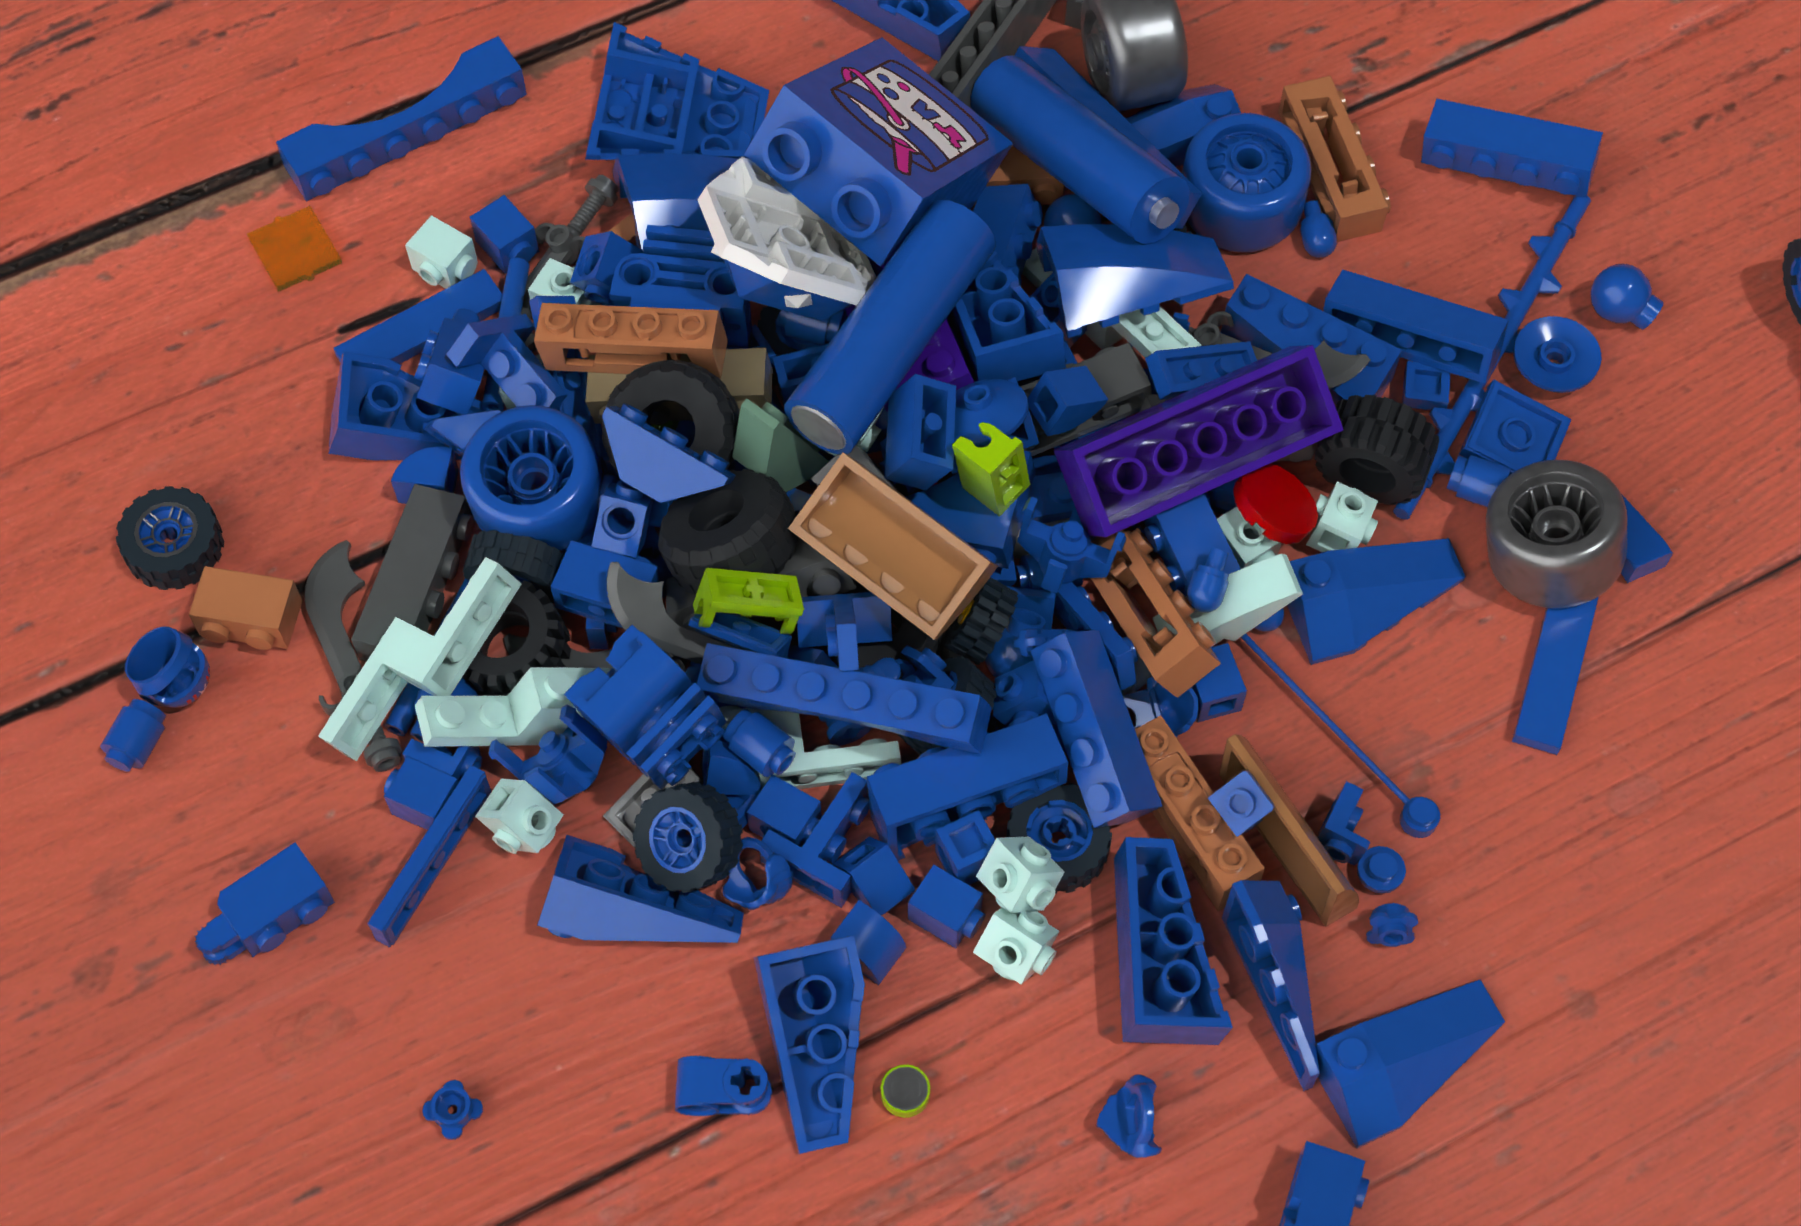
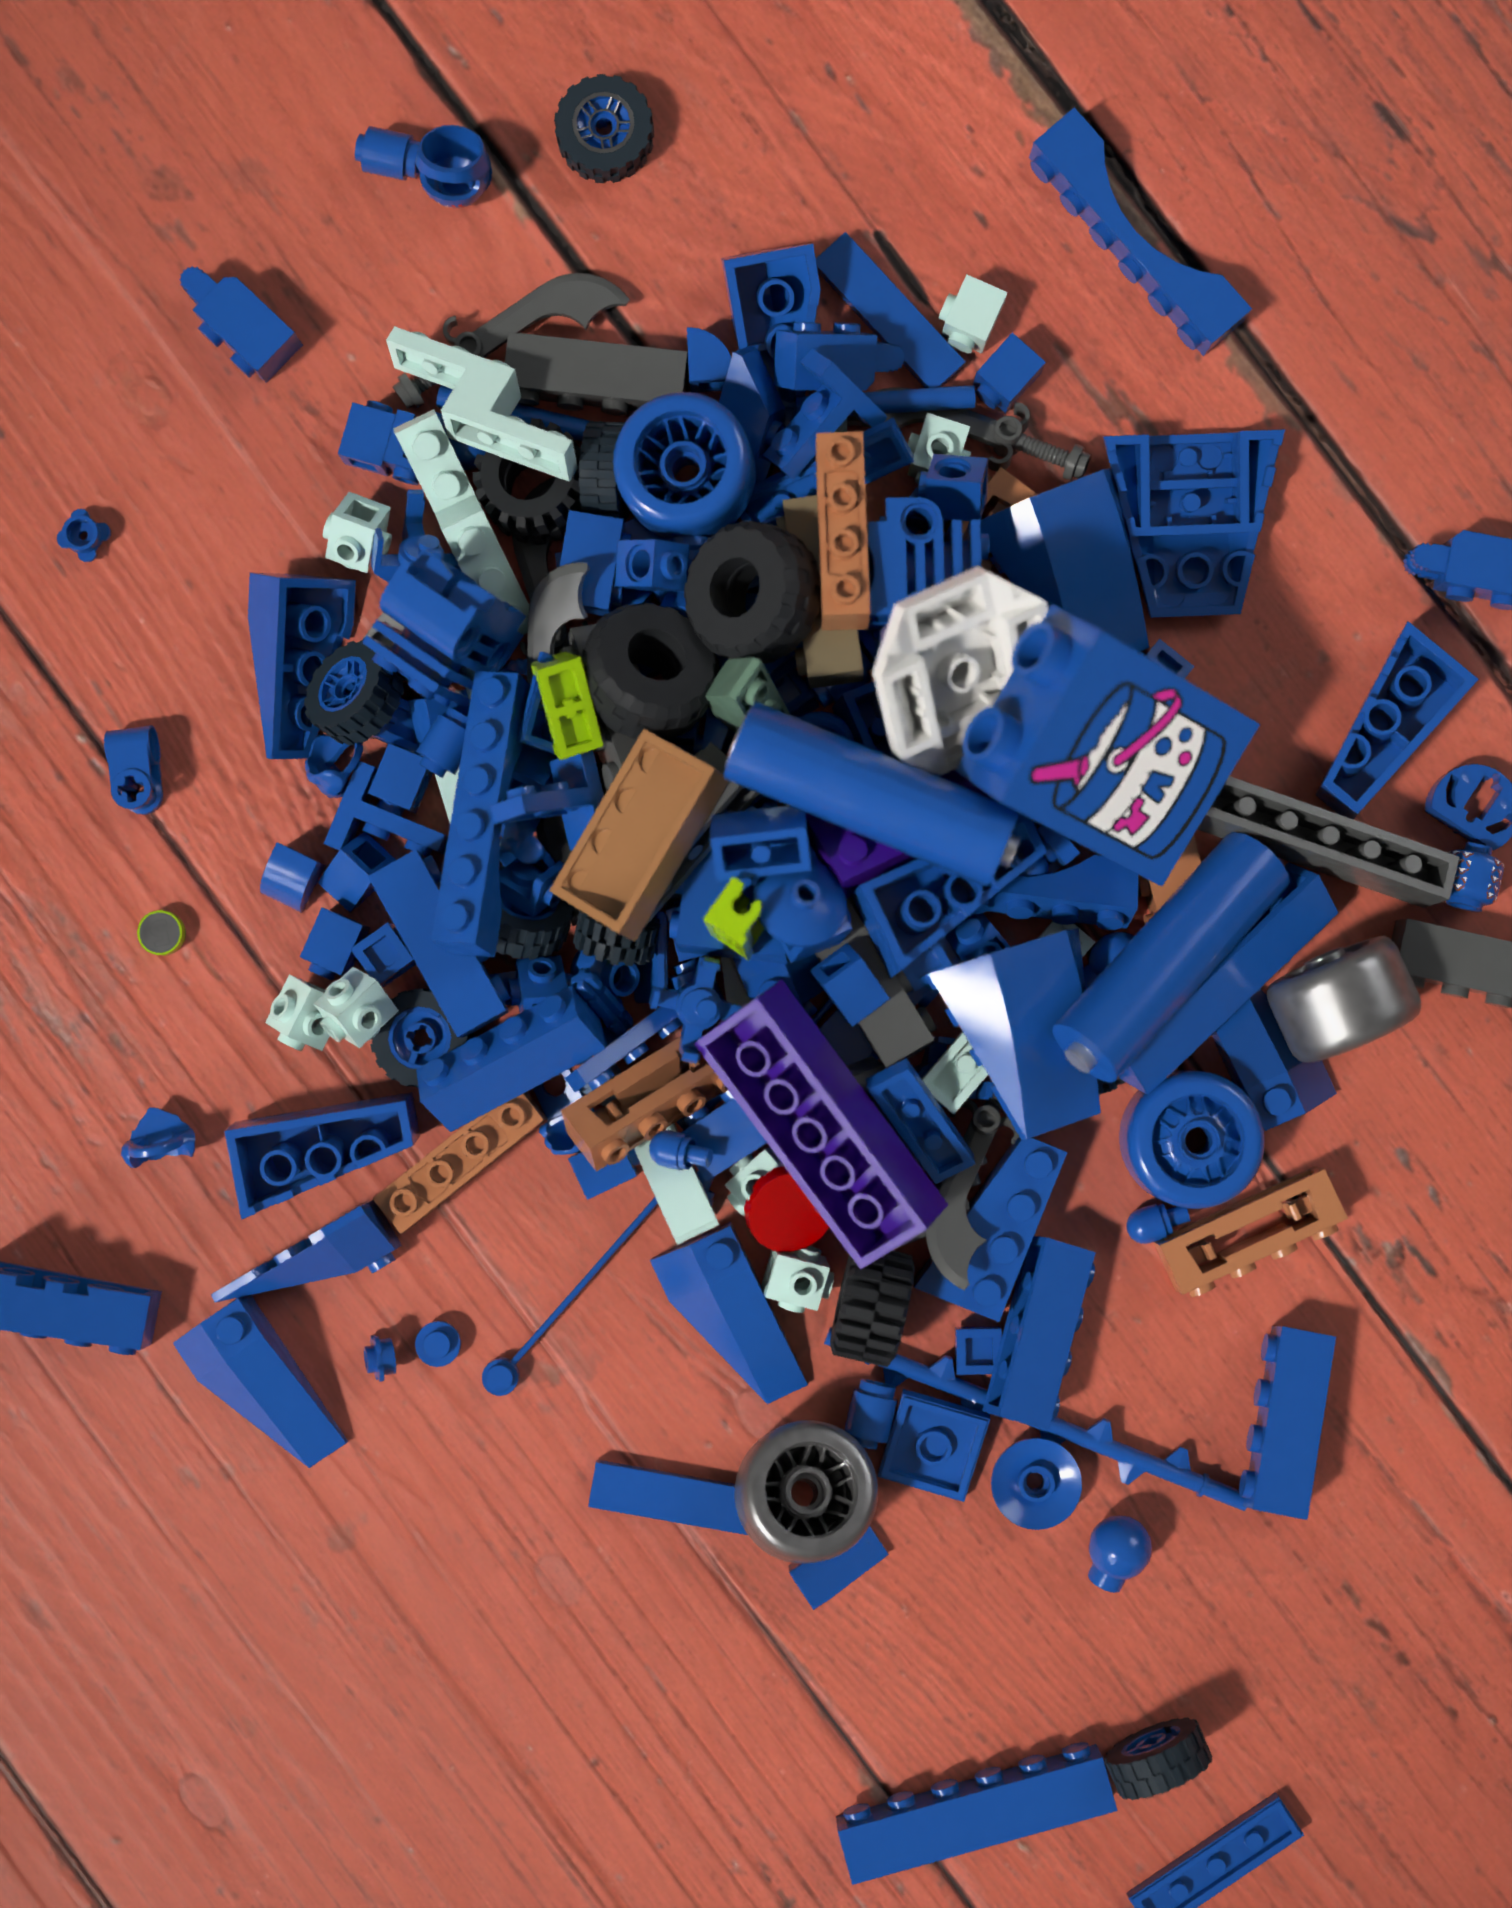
camera: 85 degrees right, 25 degrees up
(245, 608) = (531, 222): nougat brick -> none
(294, 248) = (966, 160): clear yellow piece -> none
(429, 857) = (312, 460): blue tile -> none
(658, 460) = (695, 589): slope -> none
(813, 1021) = (202, 840): blue wedge -> none
(1242, 803) = (451, 1204): blue bracket -> none
(1292, 838) = (454, 1255): medium nougat slope -> none
(1338, 827) = (479, 1300): blue bracket -> none

